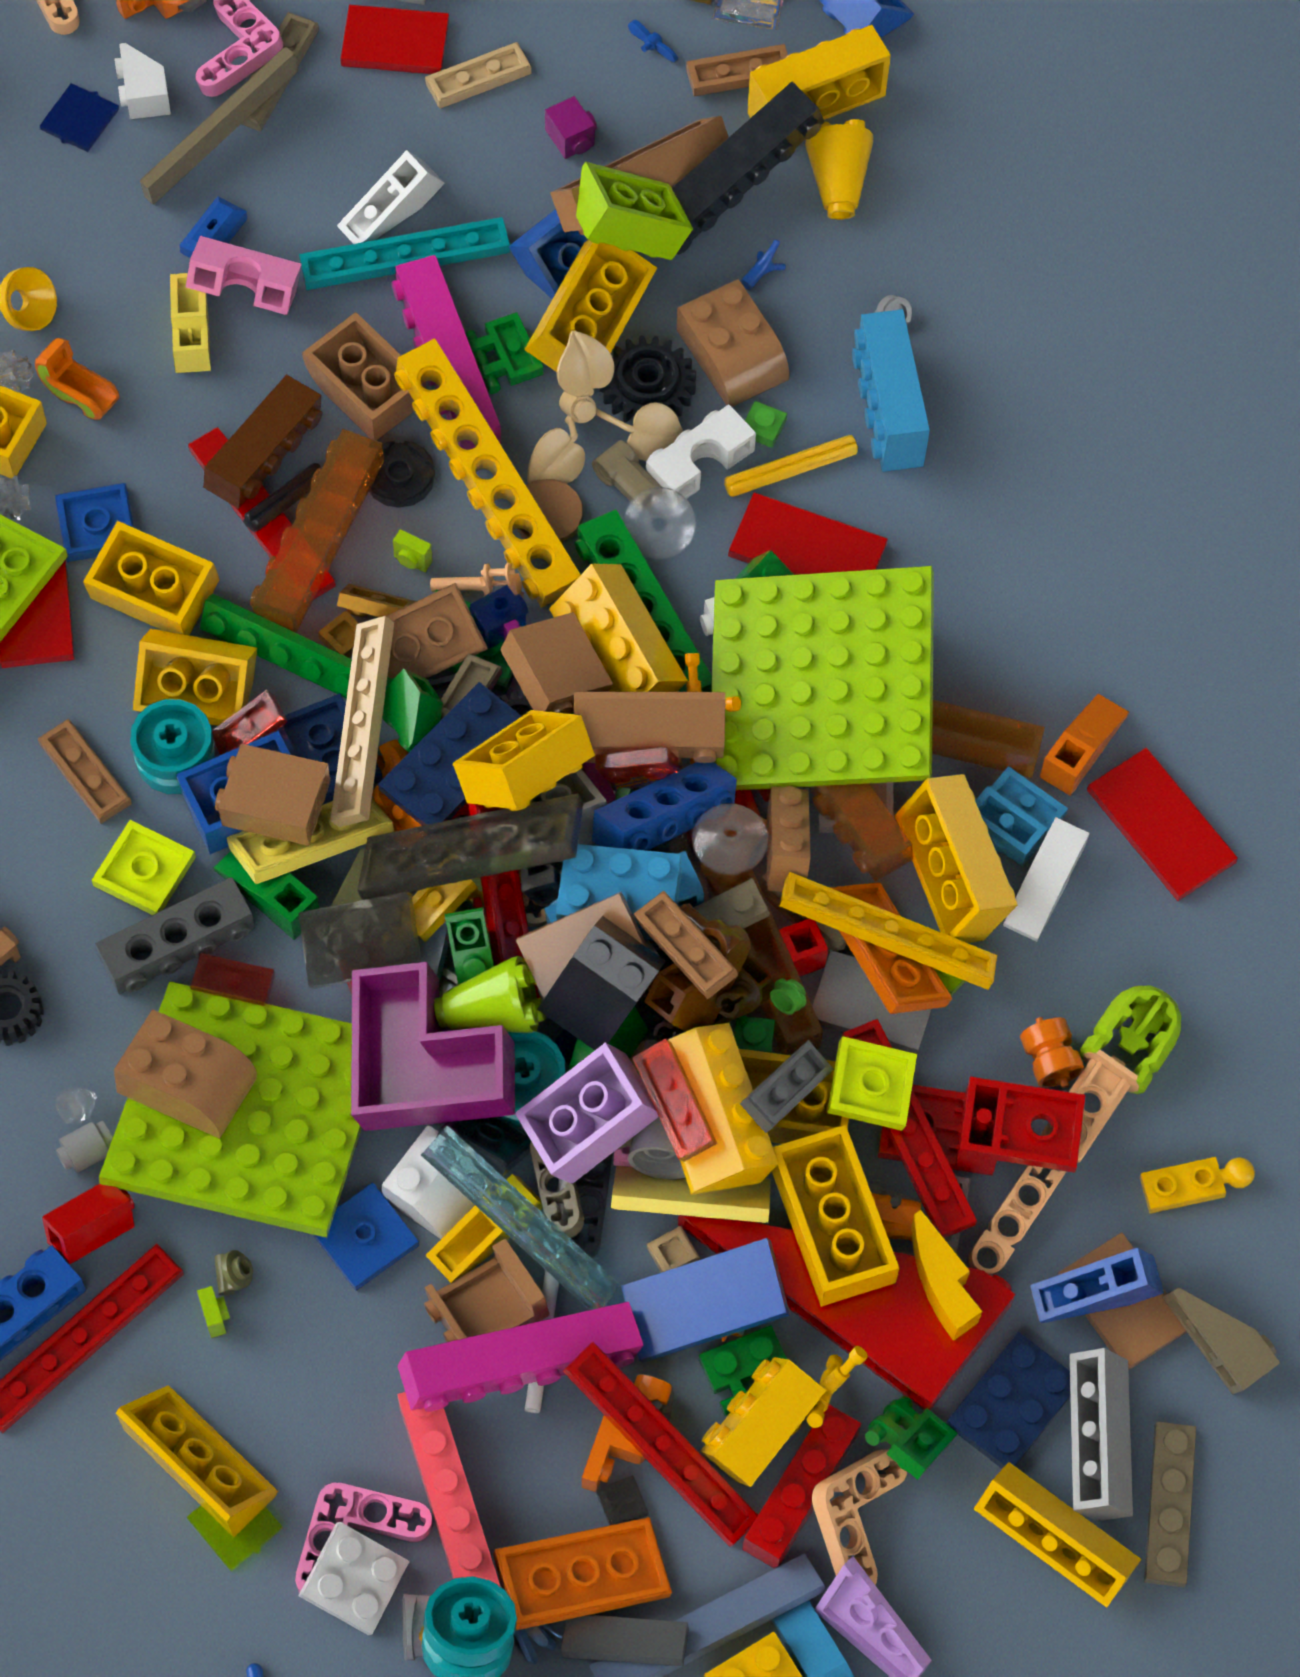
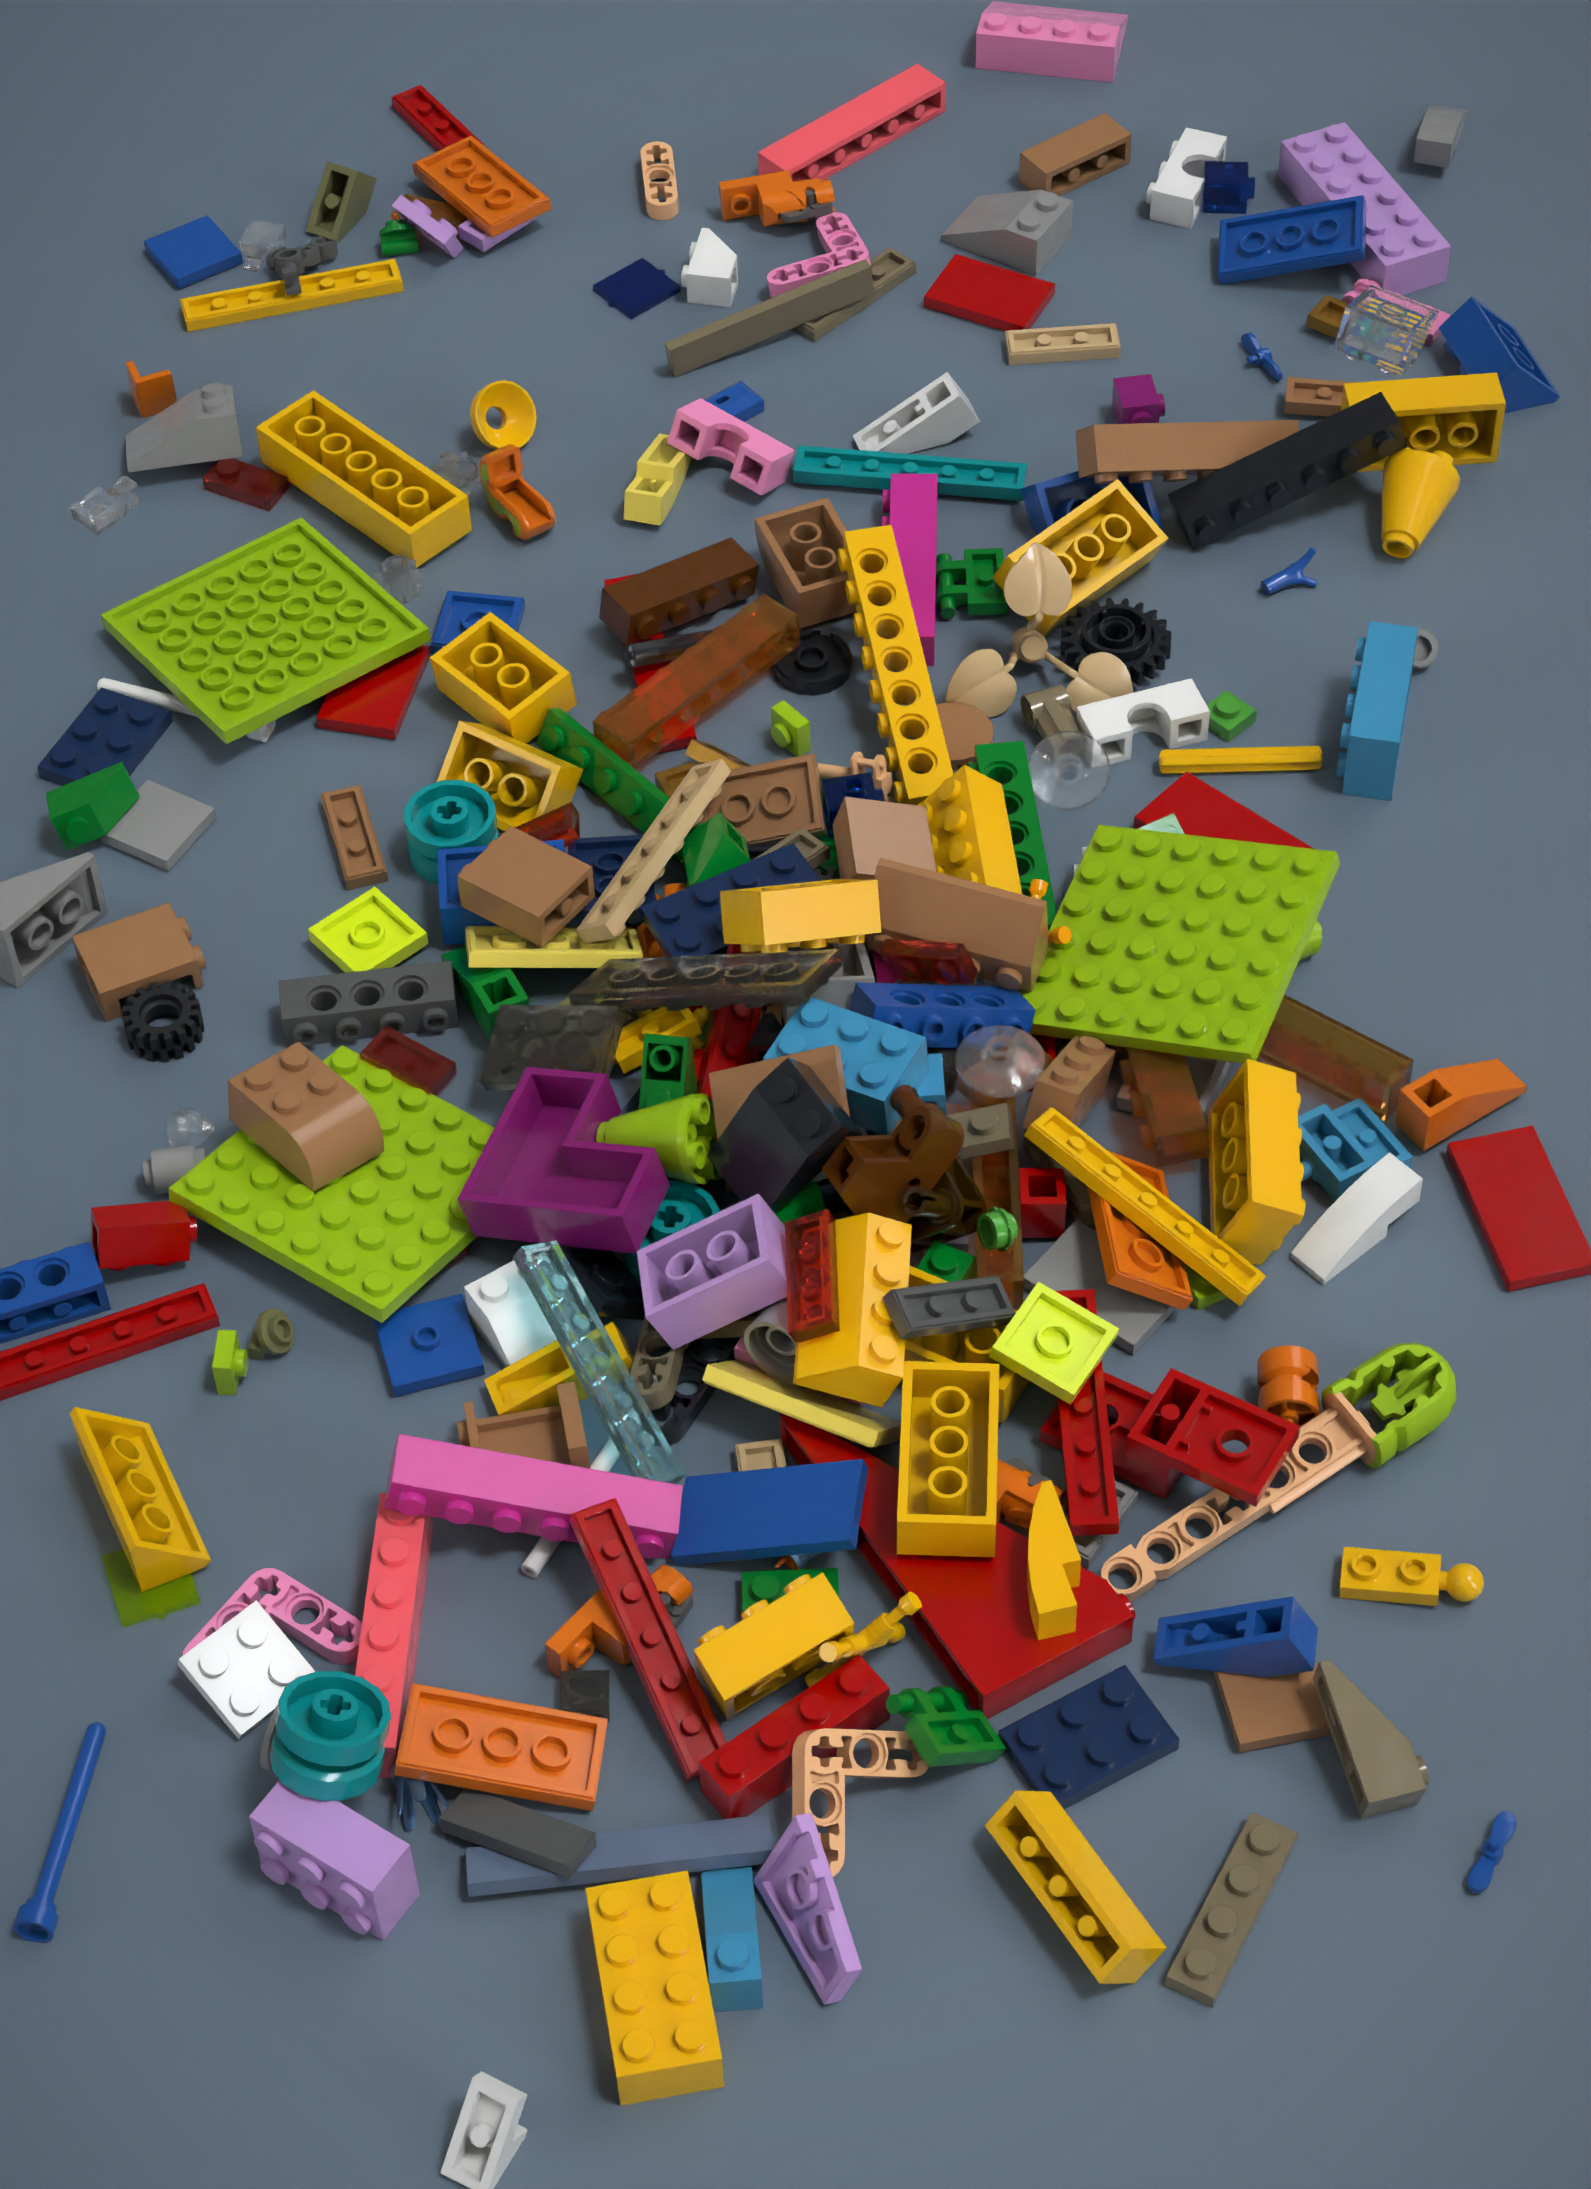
camera: 25 degrees right, 15 degrees down
(630, 212) = (1153, 469): lime slope -> none
(685, 944) = (886, 1116): medium nougat tile -> none
(733, 343) = (1224, 631): medium nougat brick -> none
(1100, 1435) = (1173, 1798): light grey brick -> none

